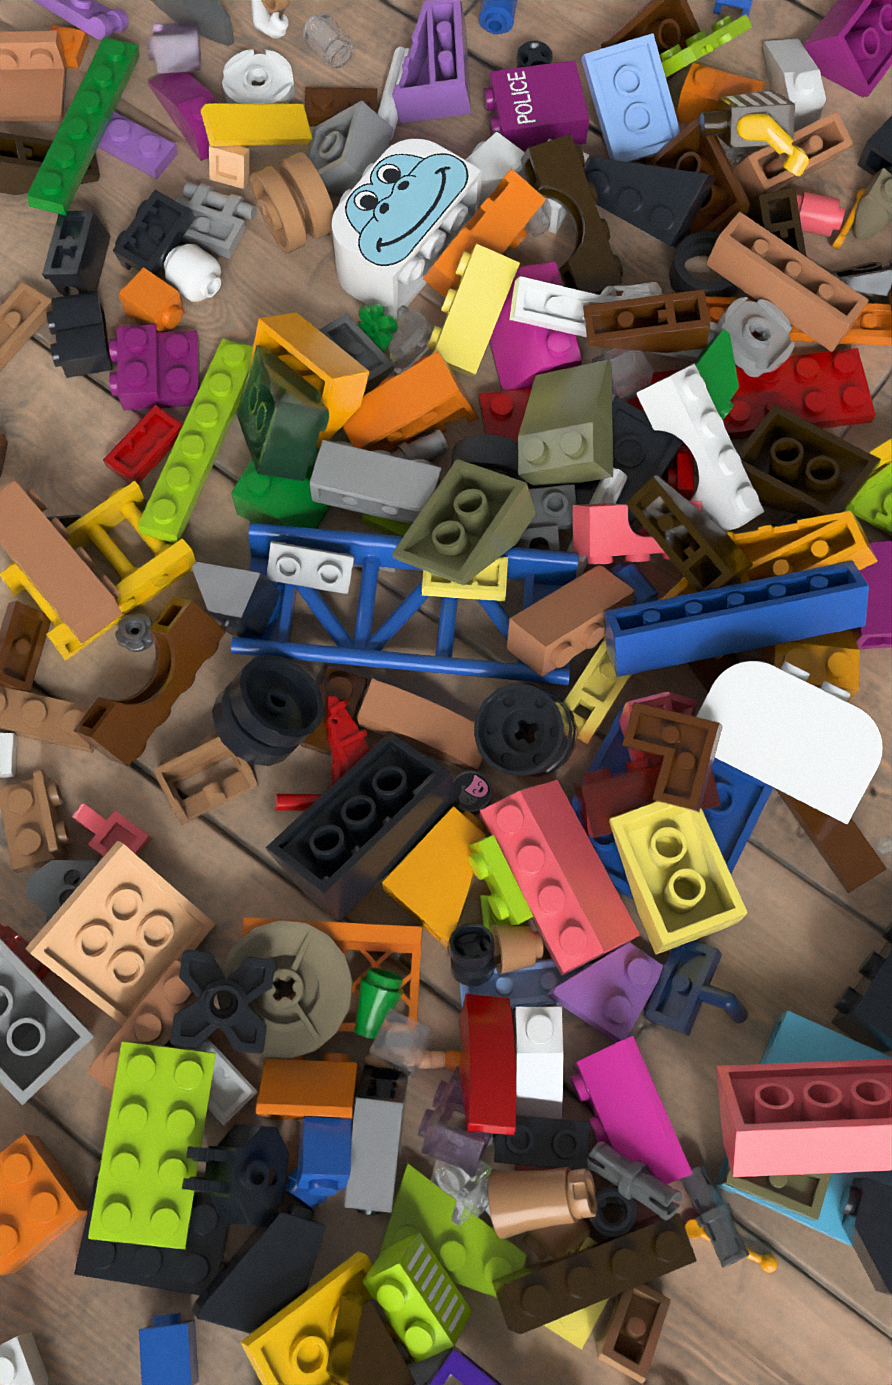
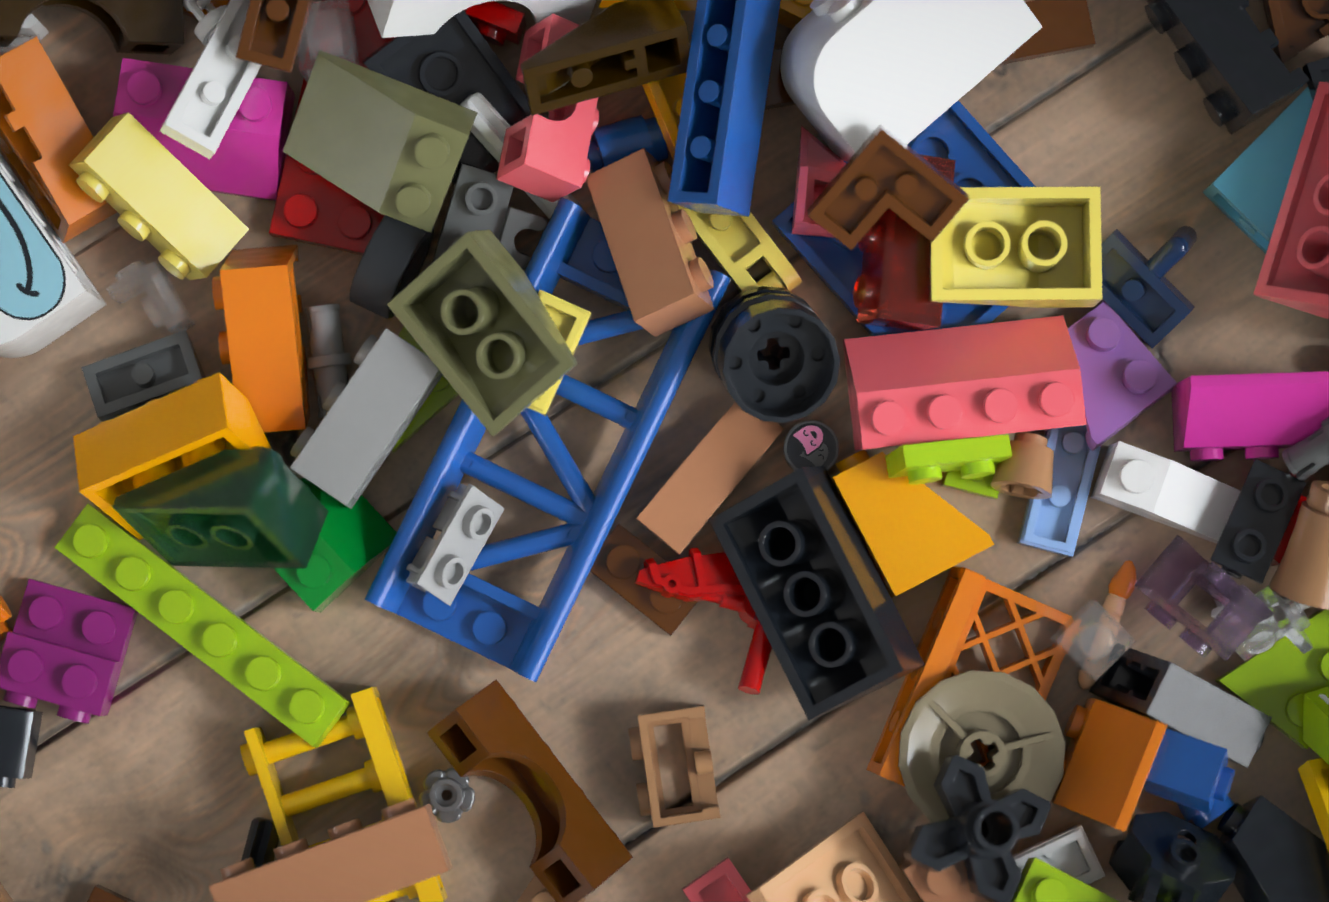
camera: 70 degrees left, 15 degrees up
(144, 446) = (181, 702): red plate -> none
(237, 597) = (460, 653): slope -> none
(267, 710) = (632, 660): black wheel -> none
(377, 326) = (117, 332): green plant -> none
(377, 994) = (1029, 649): green cone -> none
(472, 954) = (1007, 513): black wheel -> none
(488, 1064) = (1151, 549): red slope -> none

